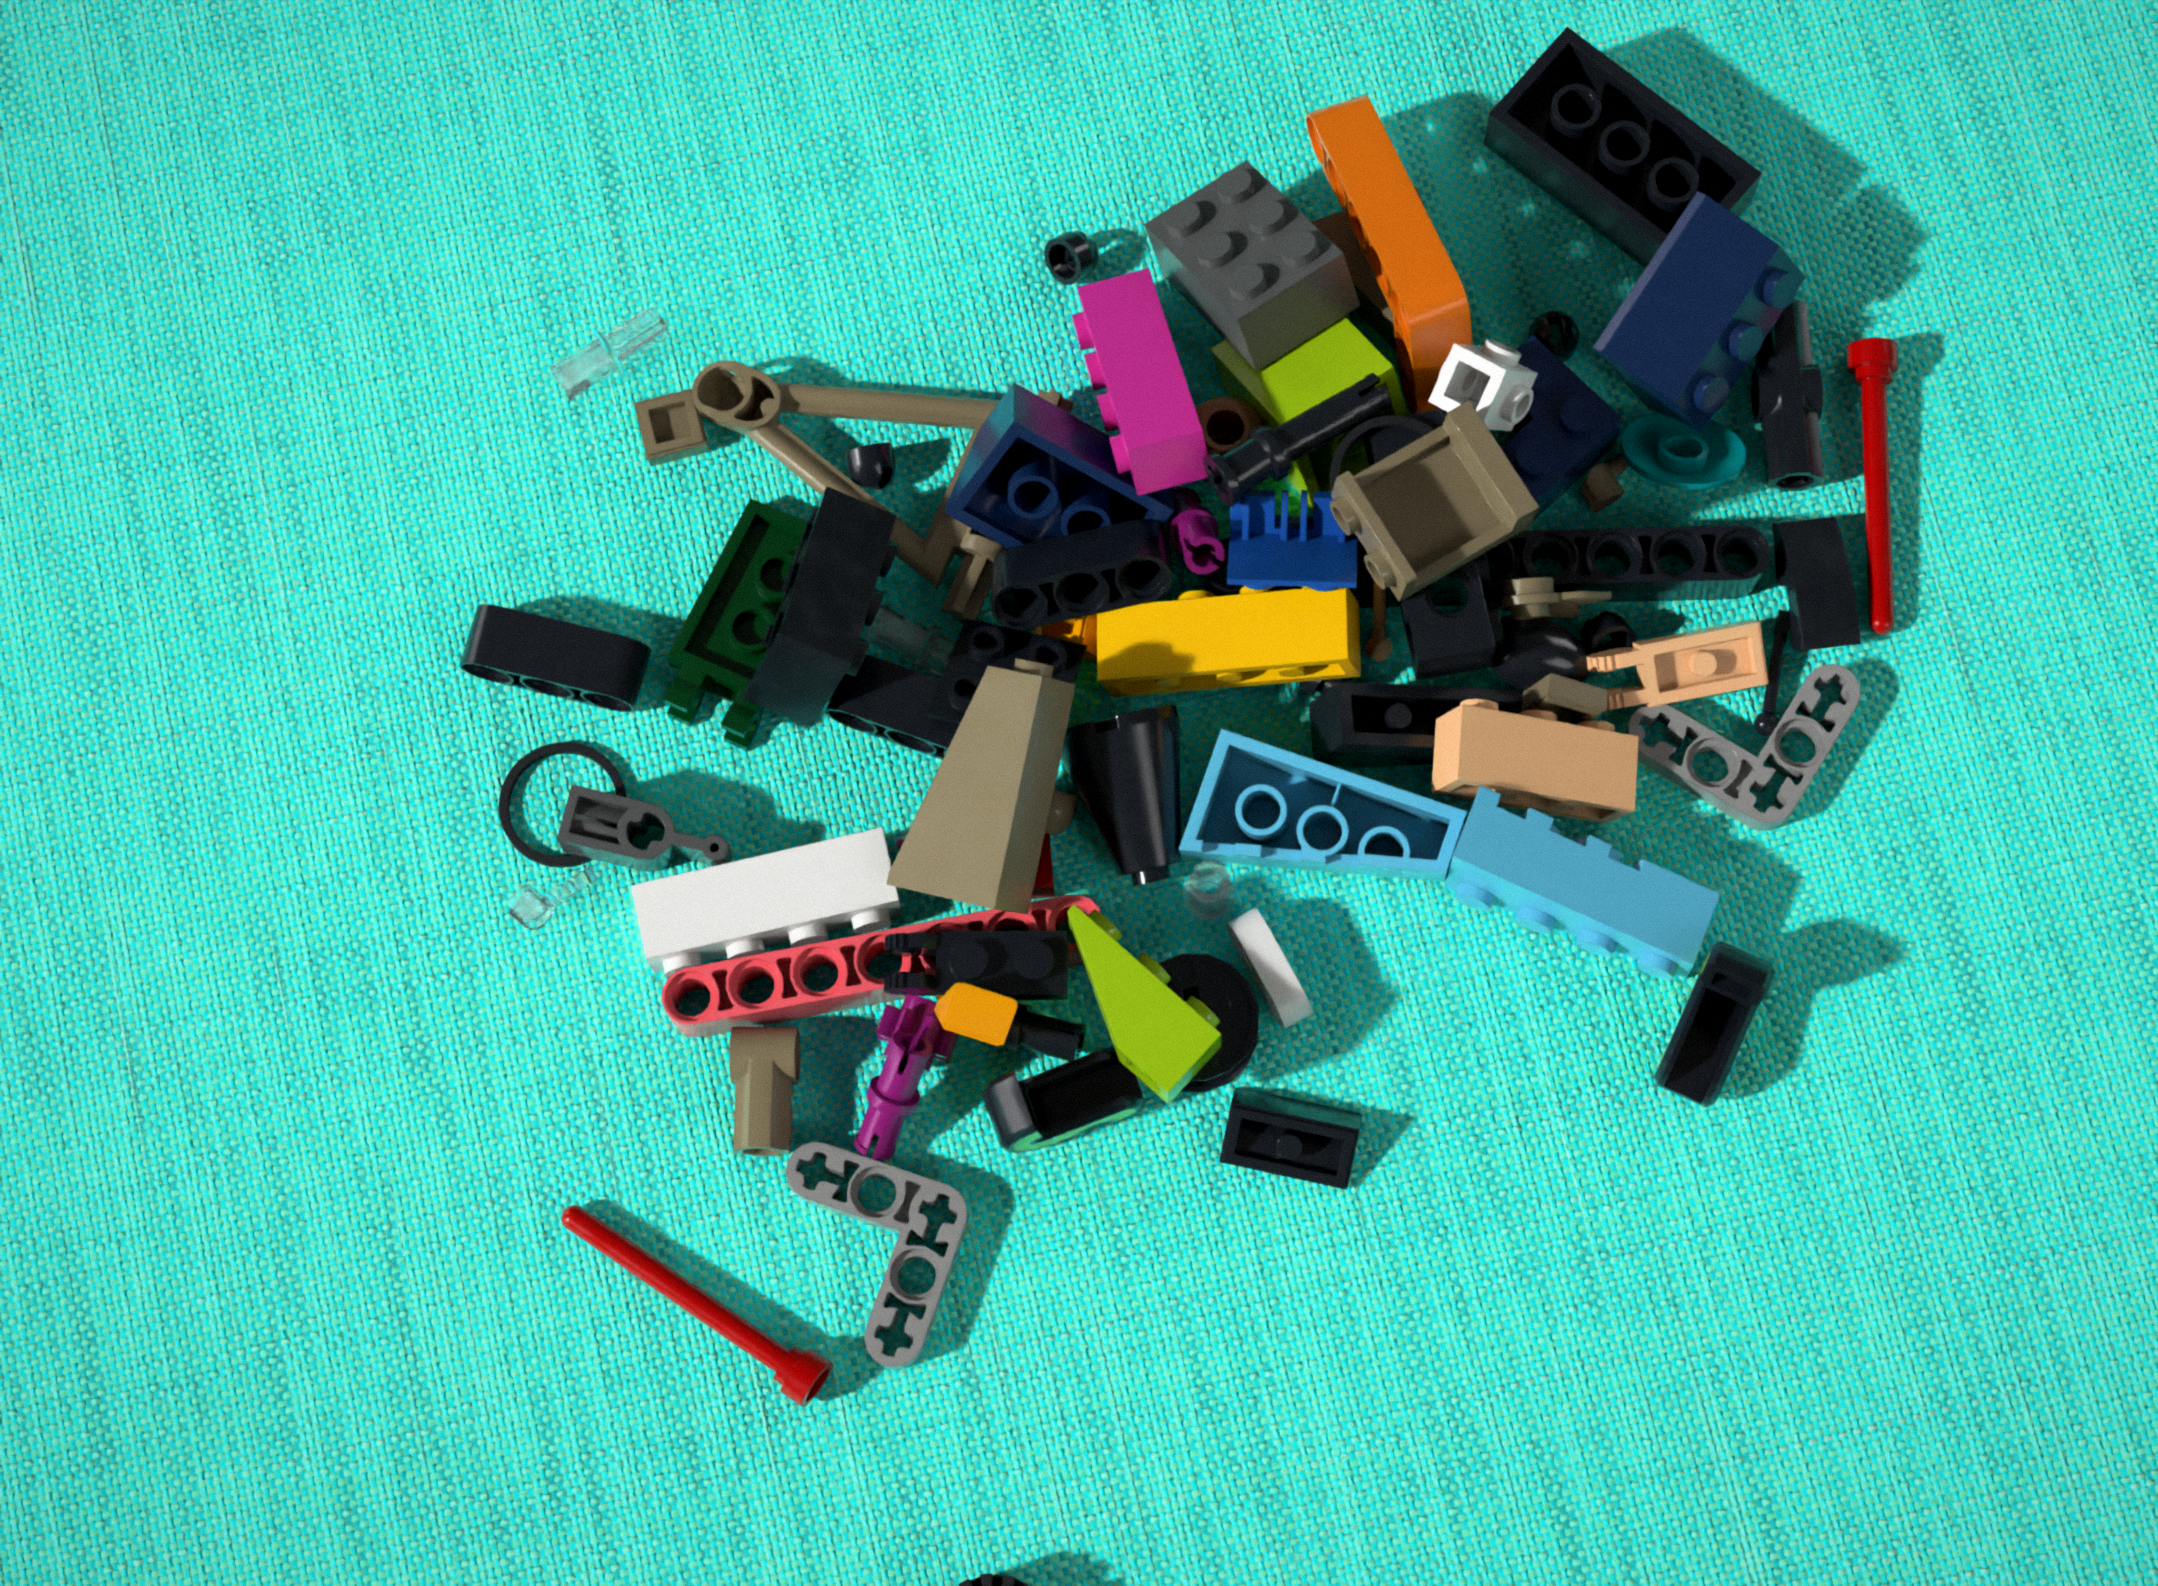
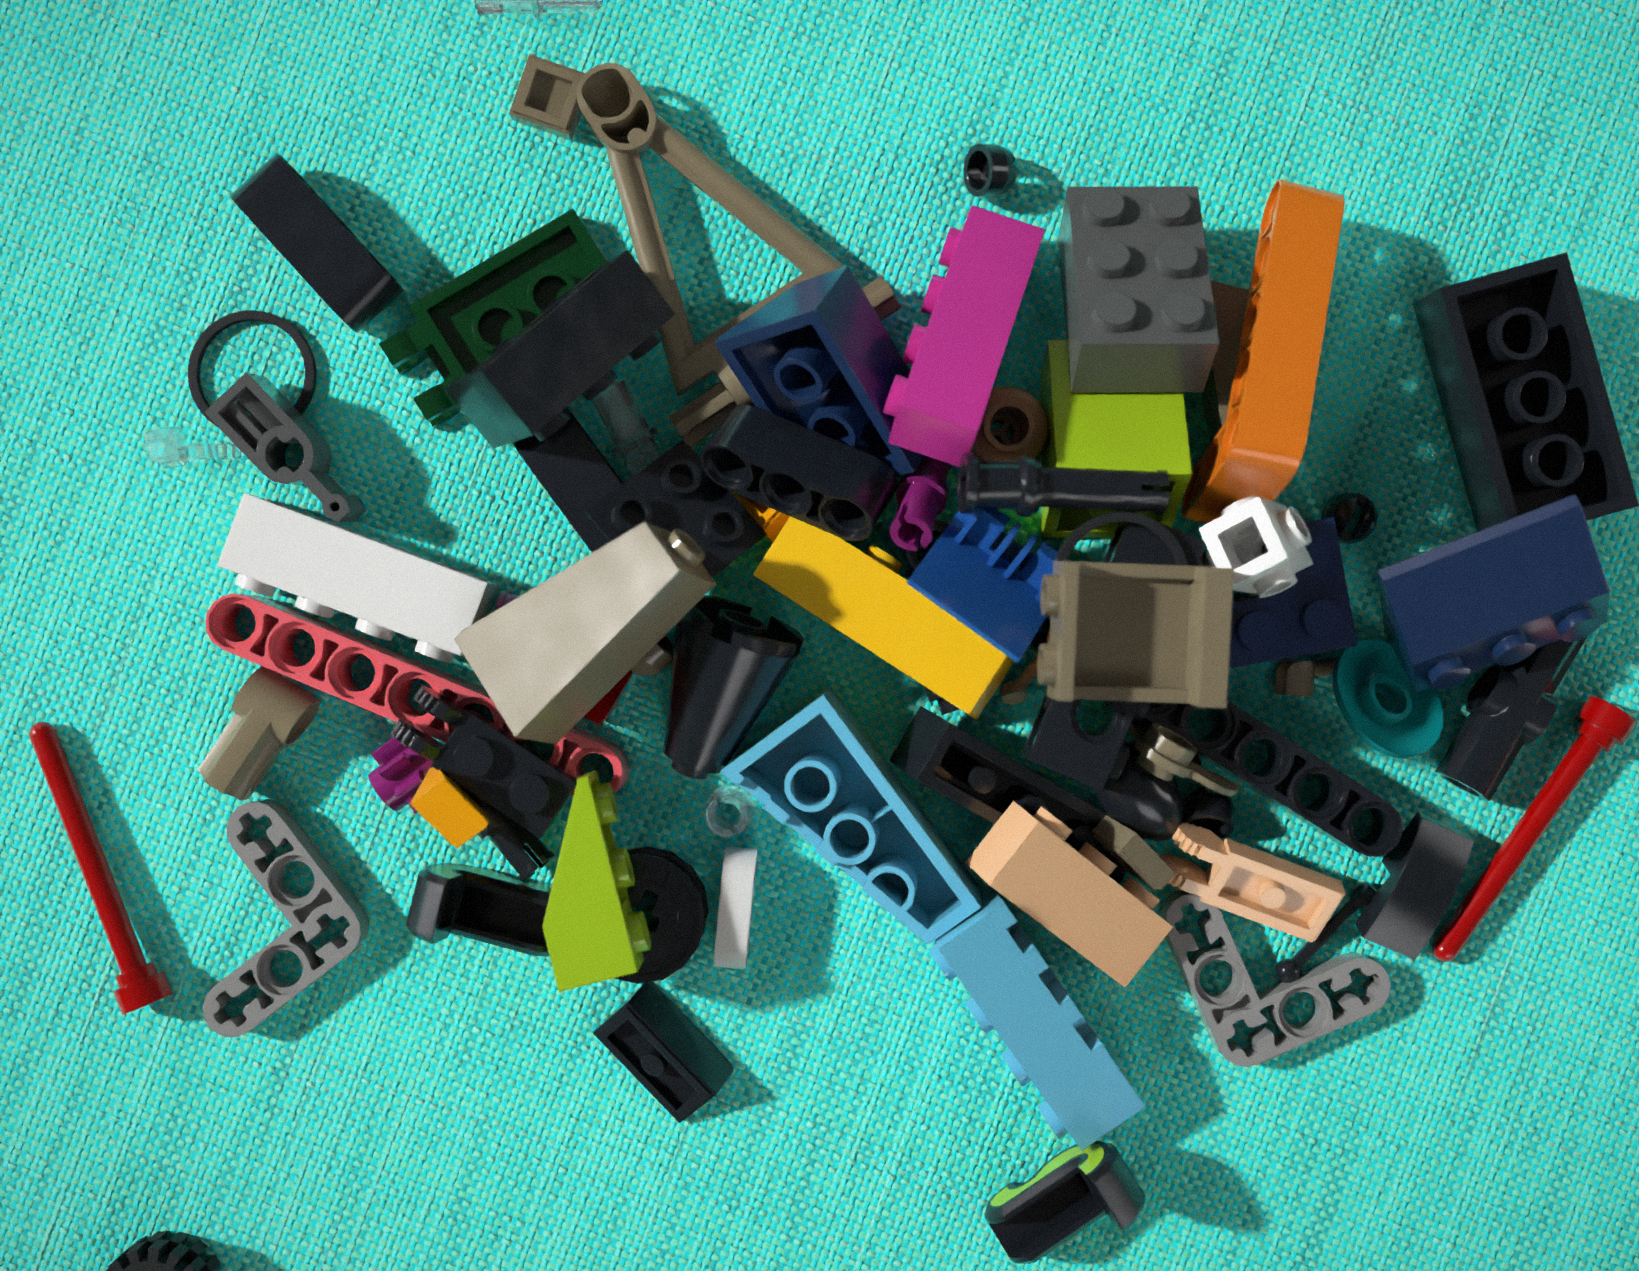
camera: 30 degrees right, 15 degrees up
(871, 465) = (693, 248): black hinge -> none
(893, 1095) = (351, 816): magenta pin -> none

